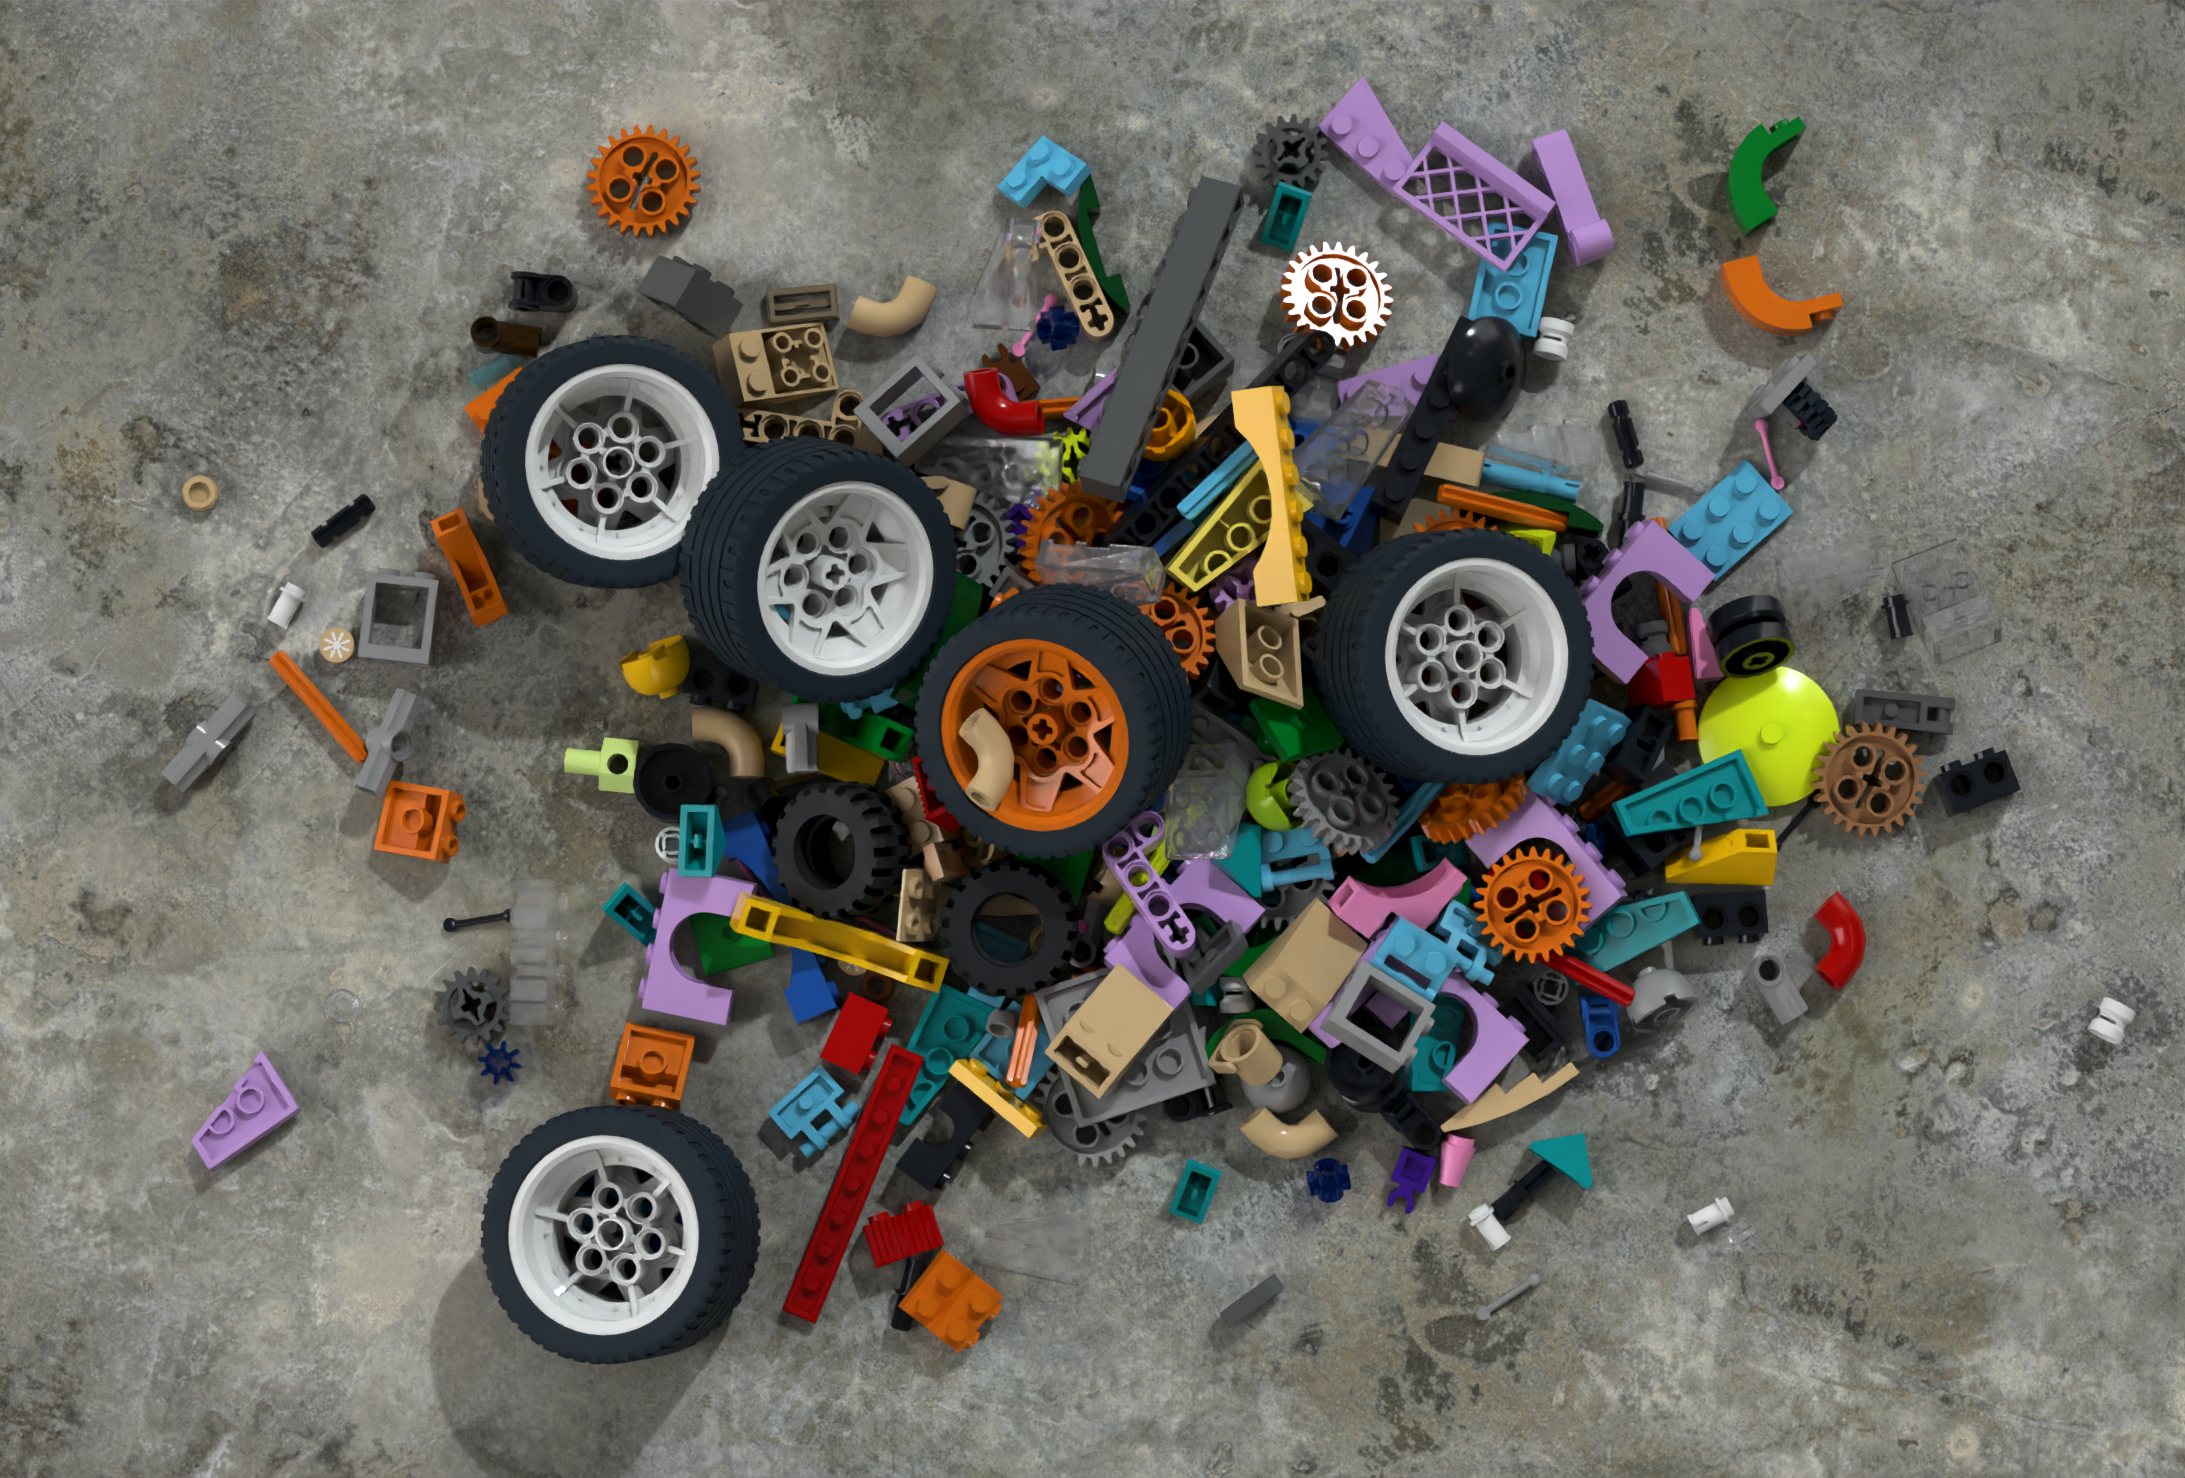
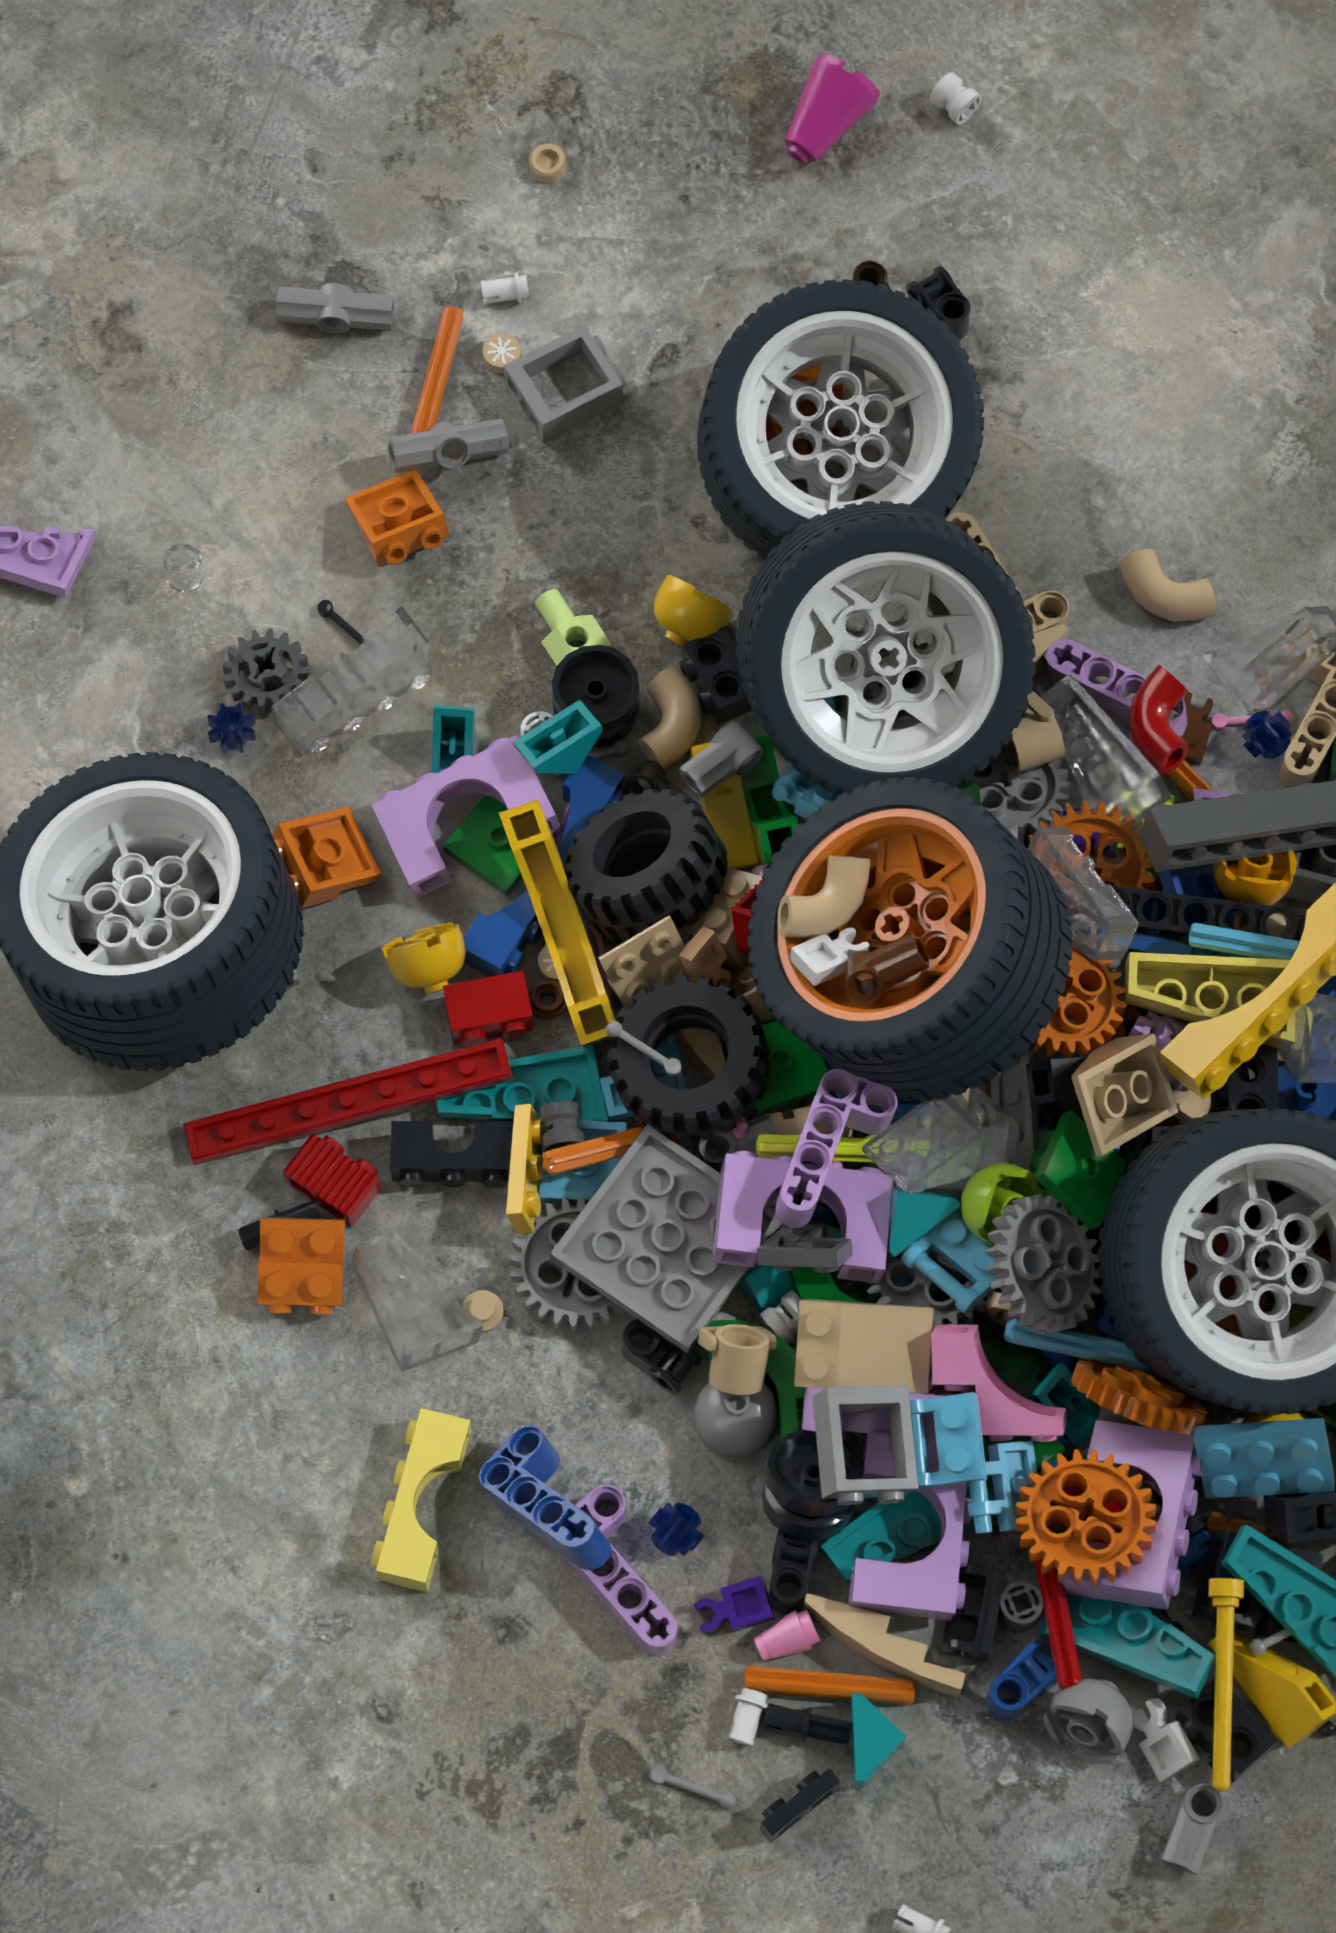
camera: 50 degrees right, 15 degrees down
(320, 256) = (828, 108): none -> dark pink cone
(343, 520) = (614, 285): black axle -> none
(382, 149) = (955, 98): none -> white wheel
(470, 567) = (657, 404): orange arch -> none
(673, 192) = (1105, 317): orange gear -> none
(691, 295) = (1039, 415): dark grey brick -> none
(775, 365) = (1036, 528): tan slope -> none
(787, 1051) = (426, 957): none -> yellow cylinder
(806, 1103) = (390, 1011): medium azure plate -> none
(807, 317) = (1129, 540): dark tan tile -> none
(931, 430) = (1085, 674): light grey window -> none
(988, 1049) = (562, 1123): none -> dark grey wheel
(1001, 1023) = (596, 1122): light grey hinge -> none
(1016, 950) = (671, 1065): none -> light grey hinge
(1030, 794) = (823, 958): none -> white plate
(1070, 771) = (886, 965): none -> reddish brown piece
(1075, 1197) = (485, 1307): none -> tan plate
(1109, 1031) = (659, 1204): tan slope -> none
(1195, 1191) = (574, 1412): teal slope -> none
(1211, 1373) = (436, 1448): none -> light yellow arch
(1252, 1300) = (506, 1541): dark grey beam -> none
(1257, 1261) = (517, 1484): none -> blue beam
(1285, 1139) = (687, 1467): tan cylinder -> none
(1333, 1240) = (625, 1579): none -> lavender beam
(1506, 1155) = (829, 1685): none -> orange axle
(1572, 1221) = (812, 1792): none -> black plate
(1650, 851) = (1225, 1597): none -> yellow piece
(1711, 963) = (1166, 1744): none -> white plate
(1847, 941) = (1290, 1865): red cylinder -> none

